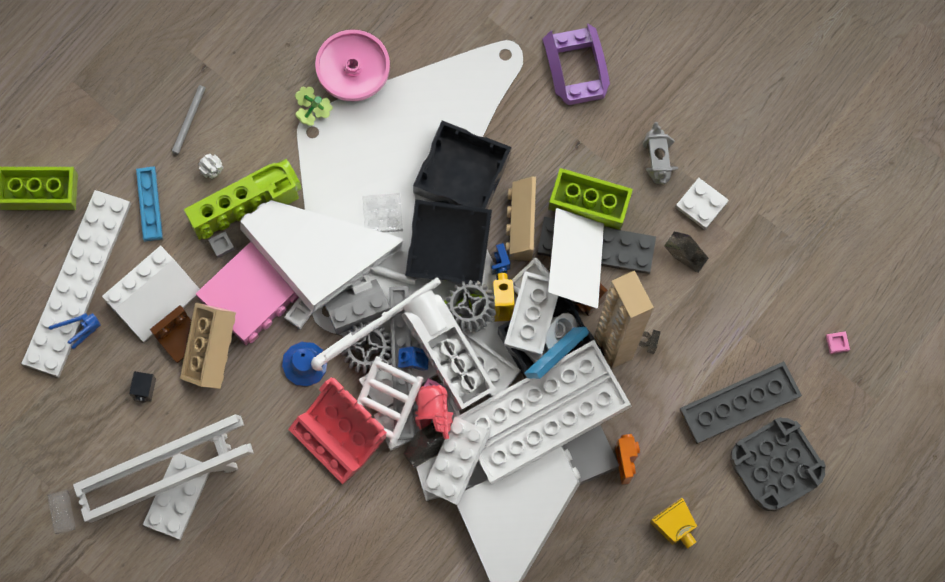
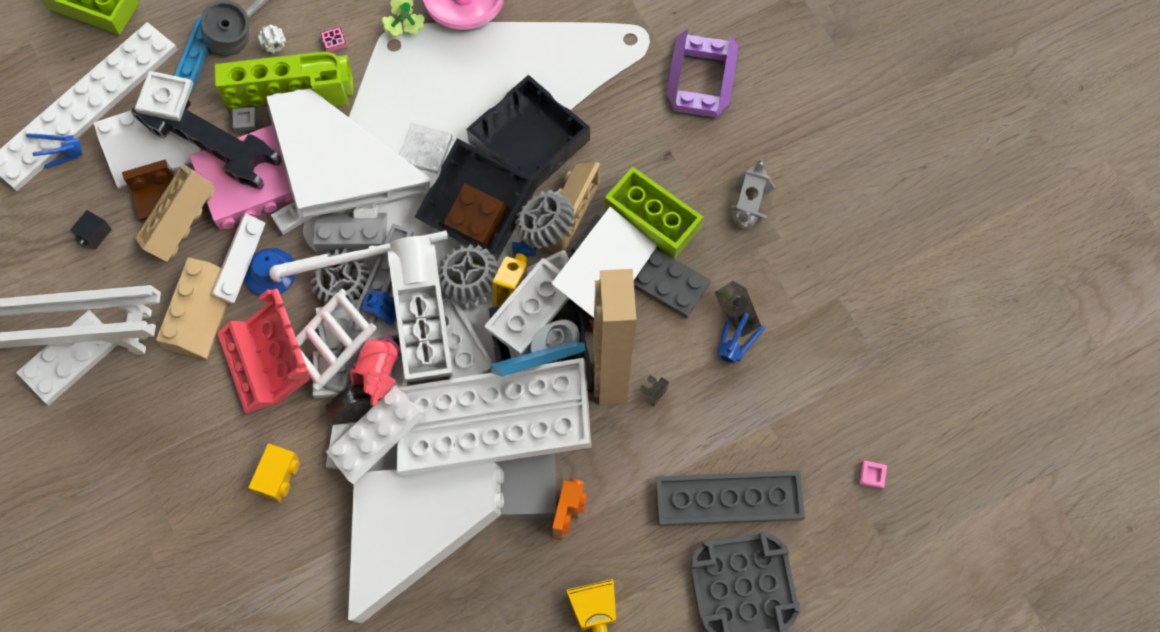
camera: 25 degrees right, 5 degrees down
(159, 253) = (164, 96): none -> white tile
(168, 172) = (225, 27): none -> dark grey wheel
(171, 268) = (239, 155): none -> black piece
(260, 146) = (333, 39): none -> tile
(264, 416) = (193, 312): none -> tan slope
(277, 363) = (238, 259): none -> white plate
(389, 520) = (274, 473): none -> yellow brick
(394, 275) = (403, 212): white piece -> none
(454, 255) = (476, 215): none -> reddish brown brick
(518, 243) = (545, 219): none -> light grey gear
(695, 287) = (730, 351): none -> blue plant
(701, 203) = (778, 264): white plate -> none

